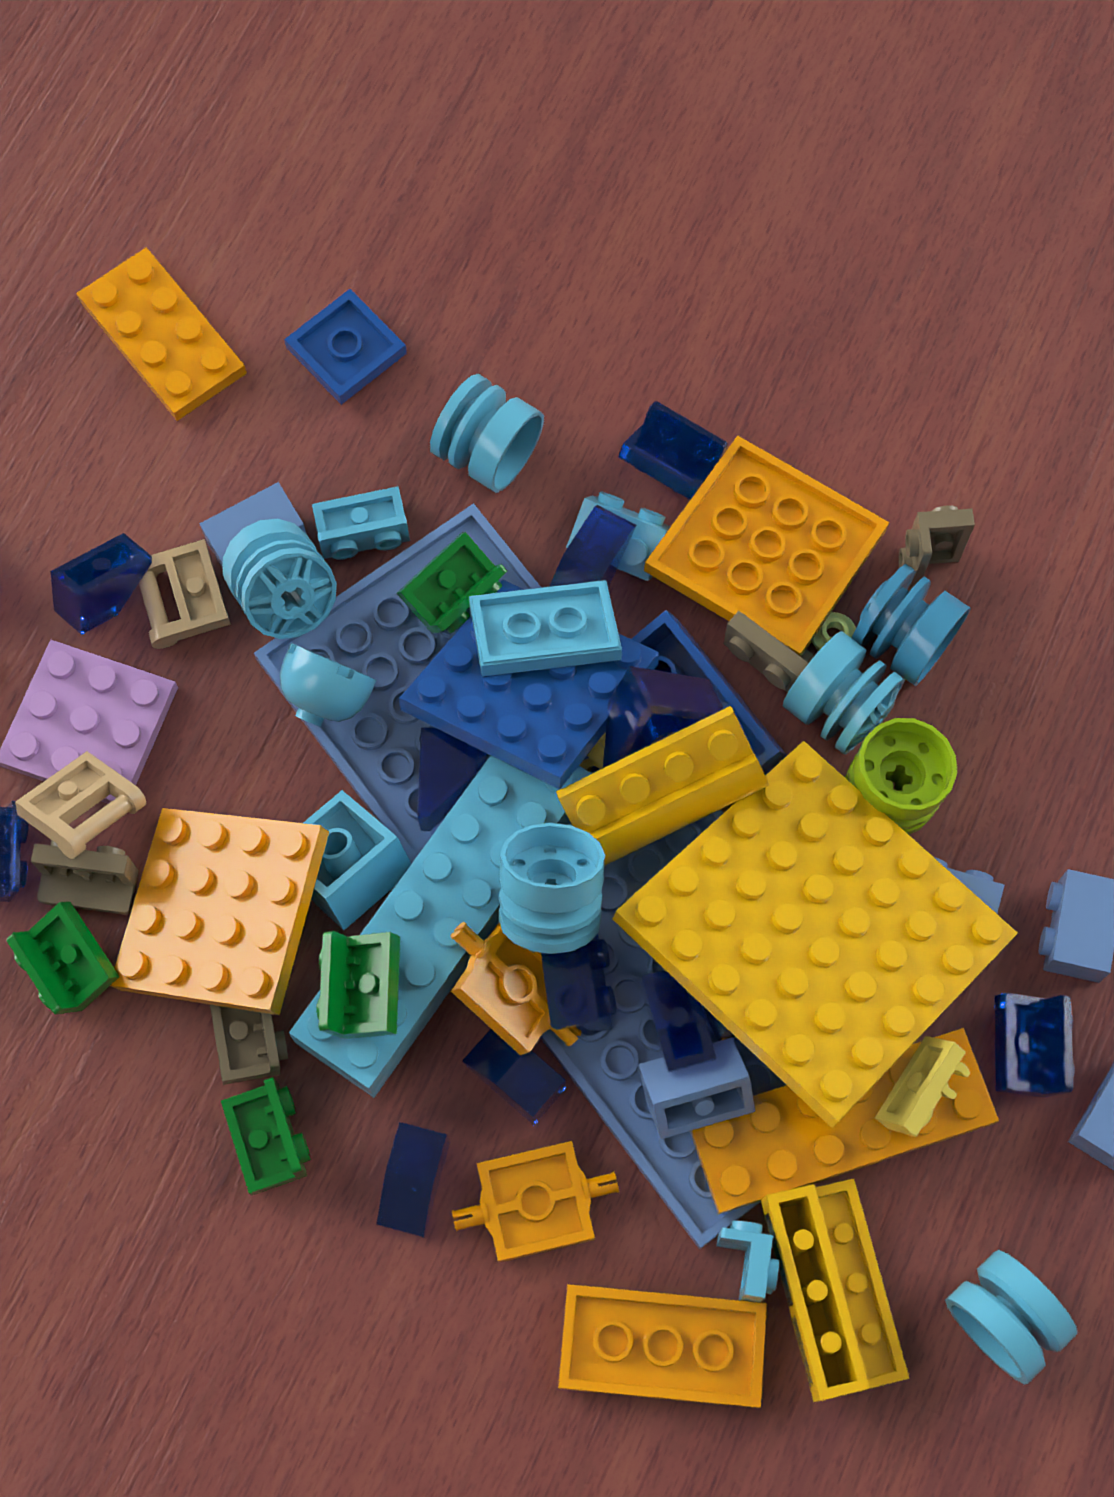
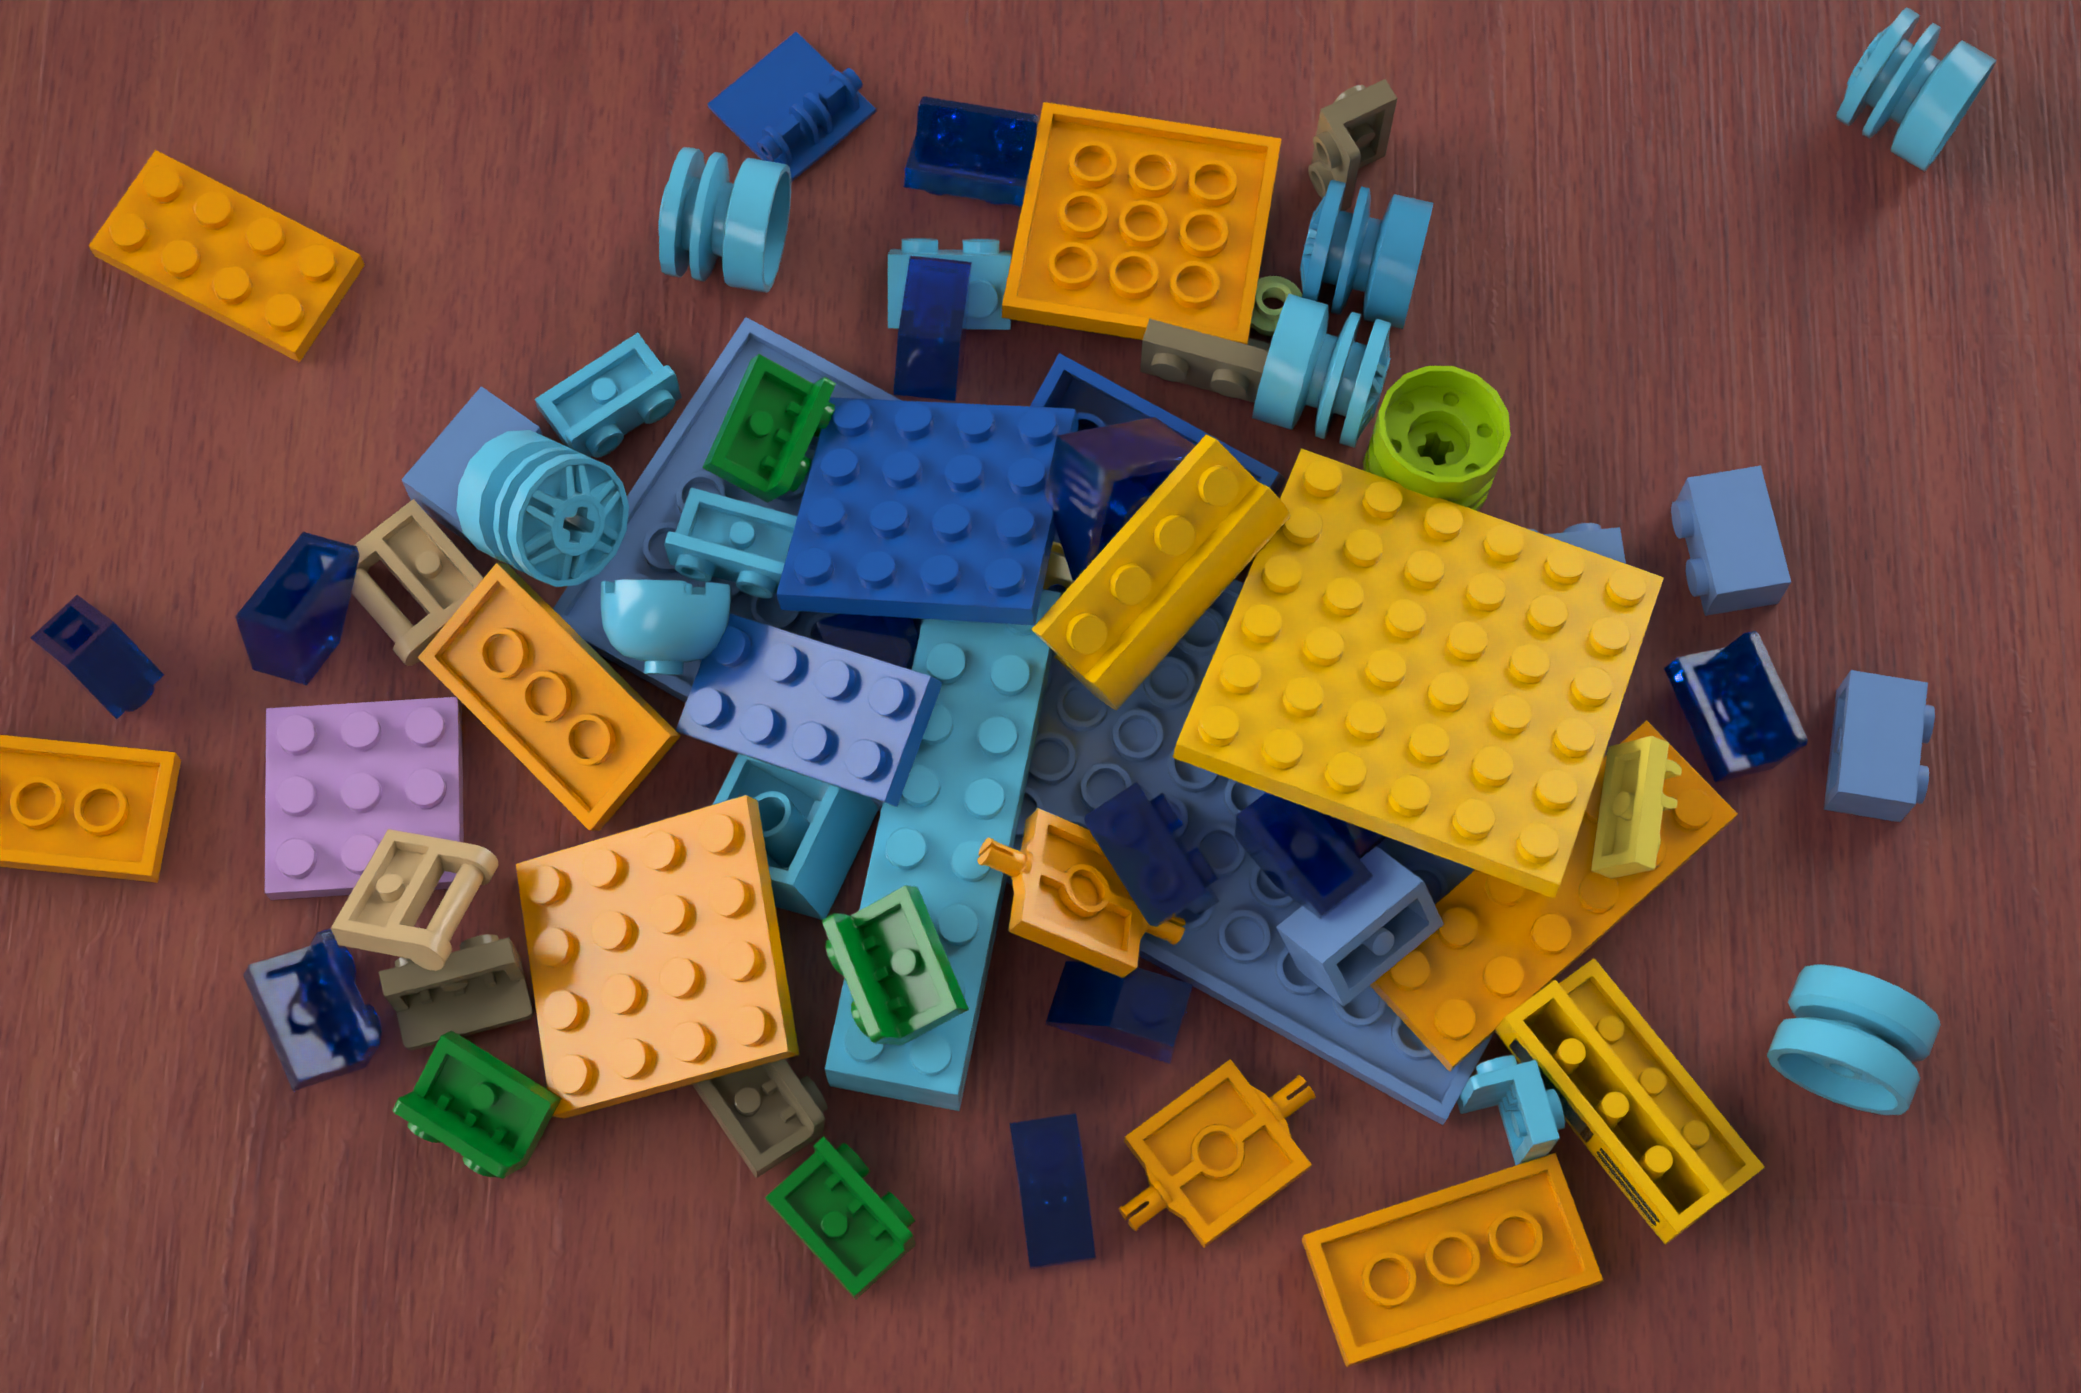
camera: 25 degrees left, 0 degrees up
(231, 706) = (548, 697): none -> light orange plate
(345, 346) = (483, 179): blue plate -> none
(390, 649) = (731, 542): none -> medium azure bracket
(390, 785) = (811, 708): none -> plate
(545, 628) = (919, 434): medium azure tile -> none
(551, 887) = (1080, 749): medium azure wheel -> none
(569, 375) = (793, 105): none -> blue hinge

